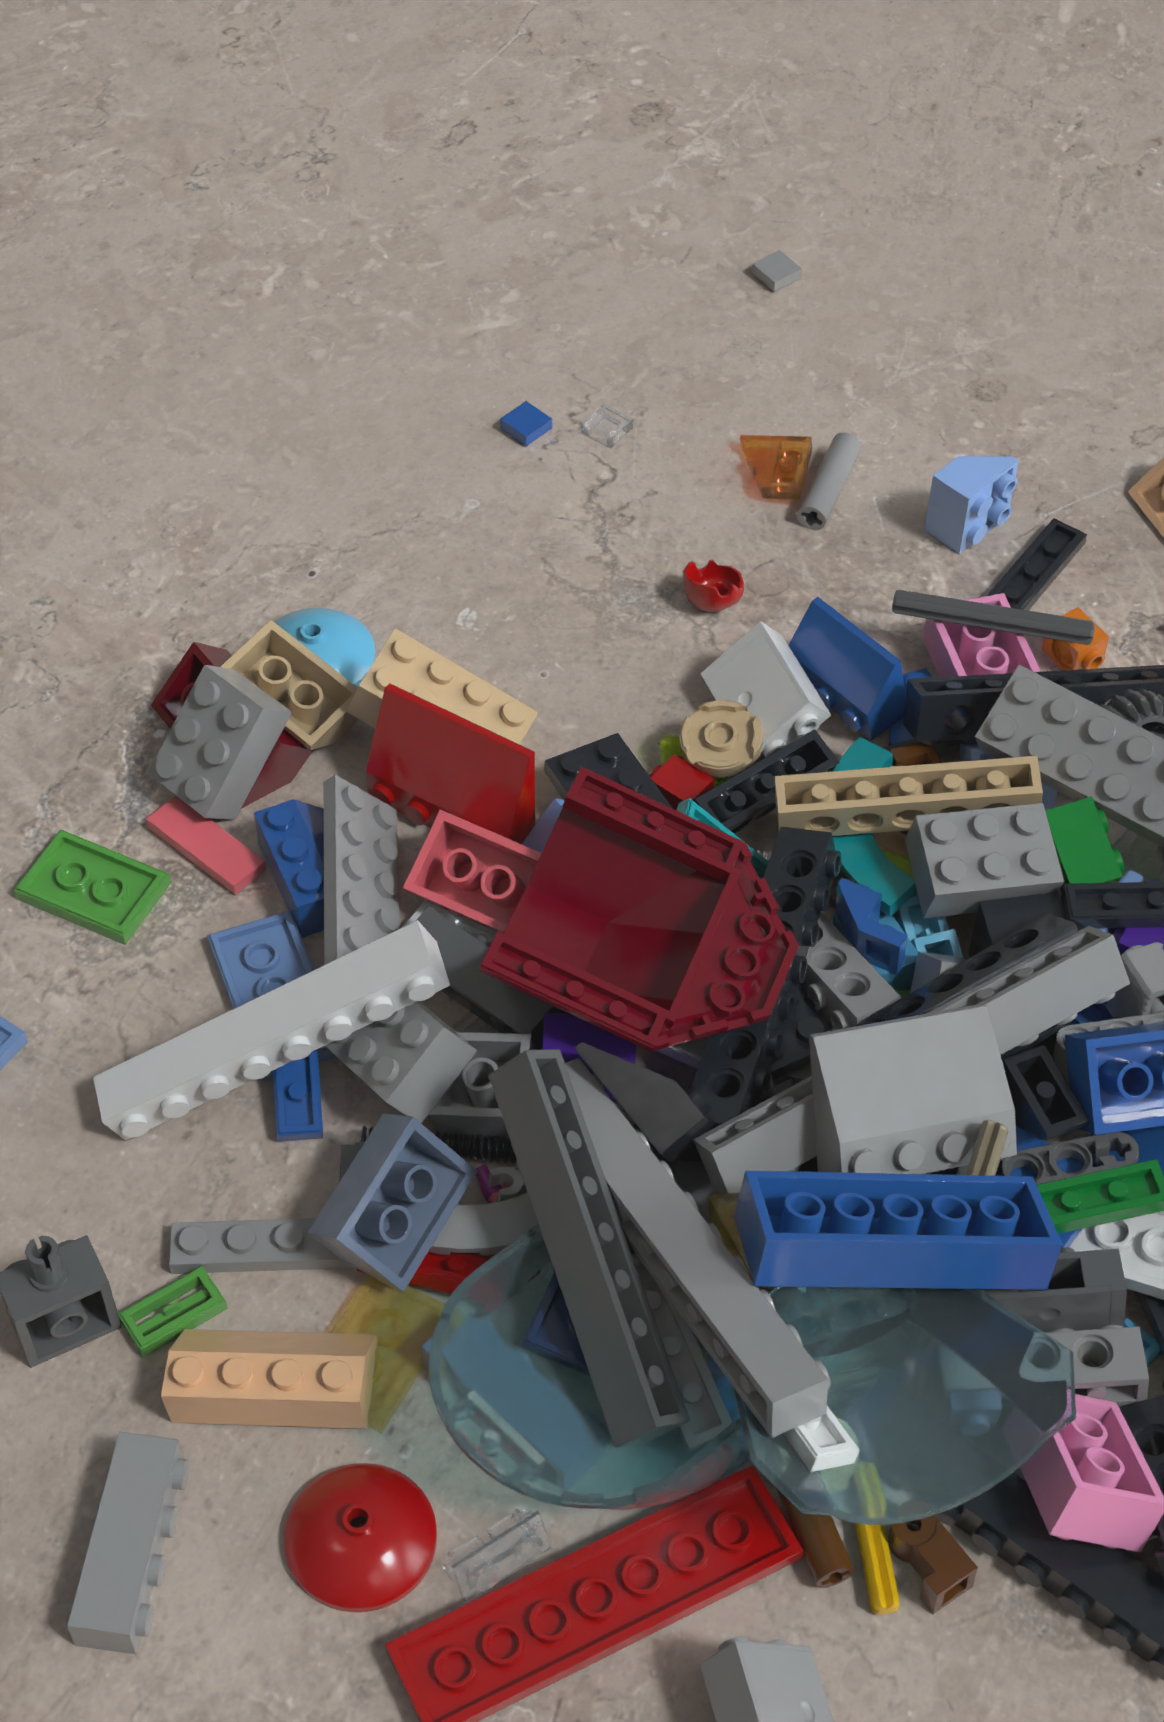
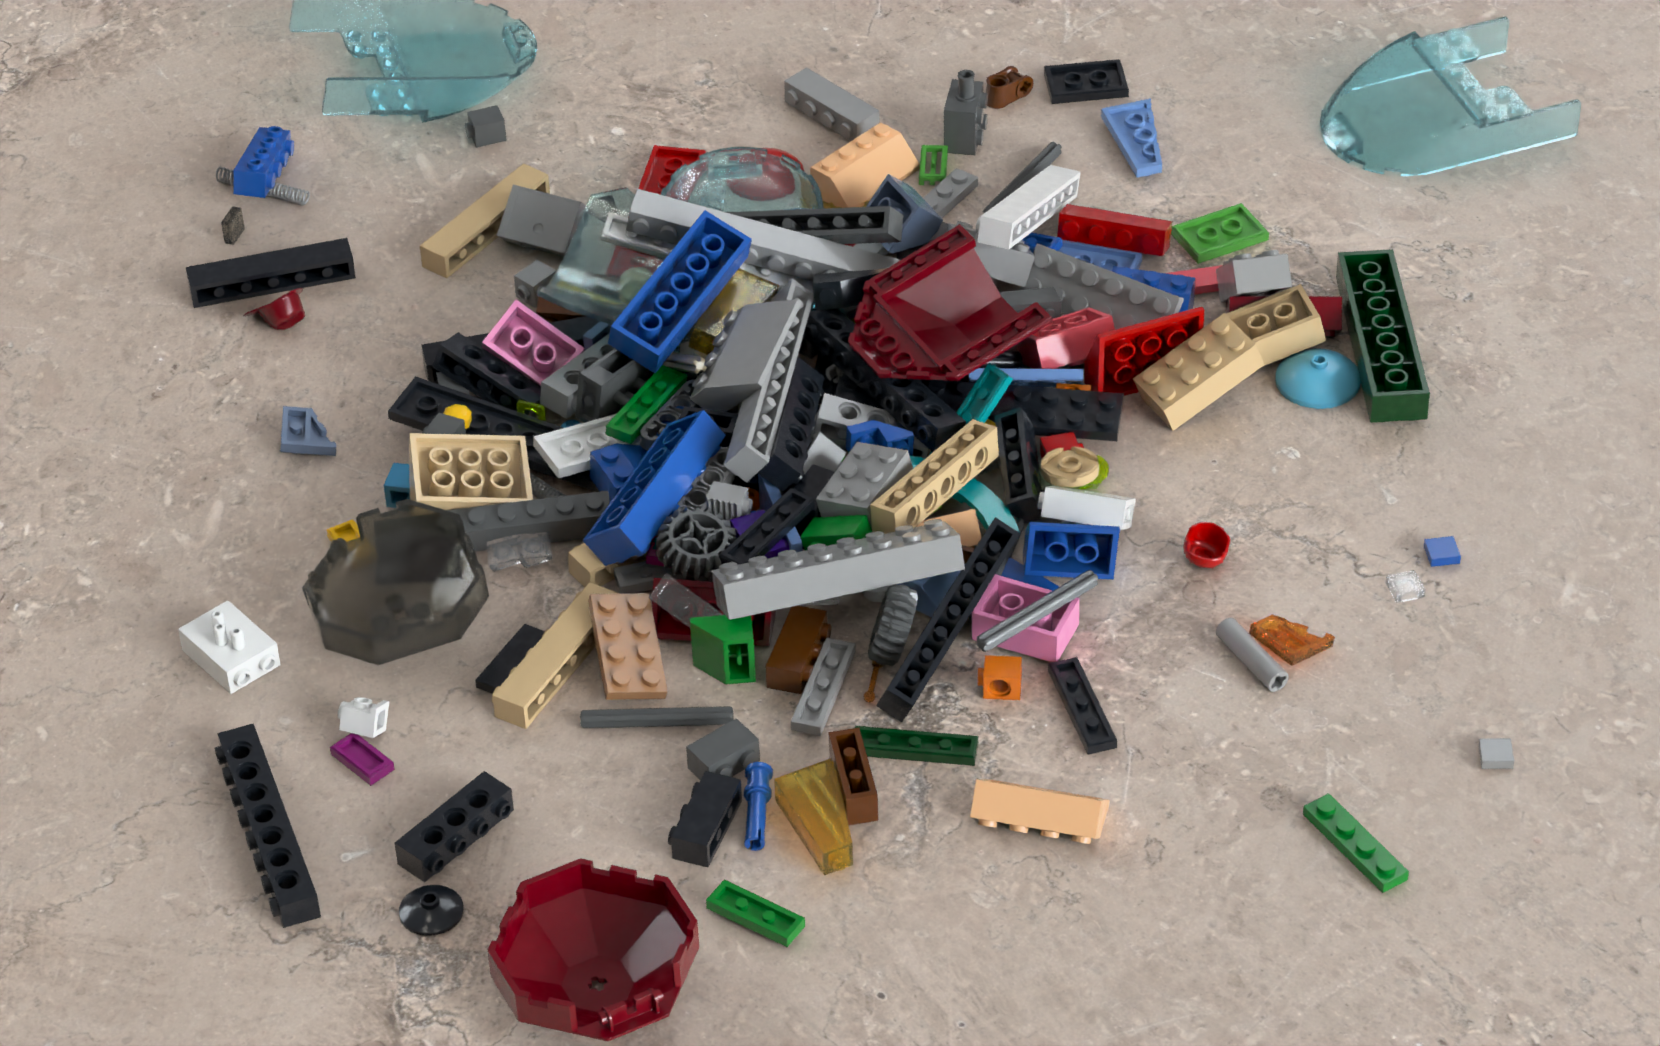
camera: 130 degrees right, 10 degrees down
(135, 1168) = (1038, 164): none -> dark grey axle
(187, 959) = (1114, 230): none -> red brick
(212, 602) = (1382, 336): none -> dark green brick
(901, 1646) = (531, 280): none -> light grey brick
(970, 499) = (1156, 684): light blue slope -> none
(987, 309) = (1355, 843): none -> green plate

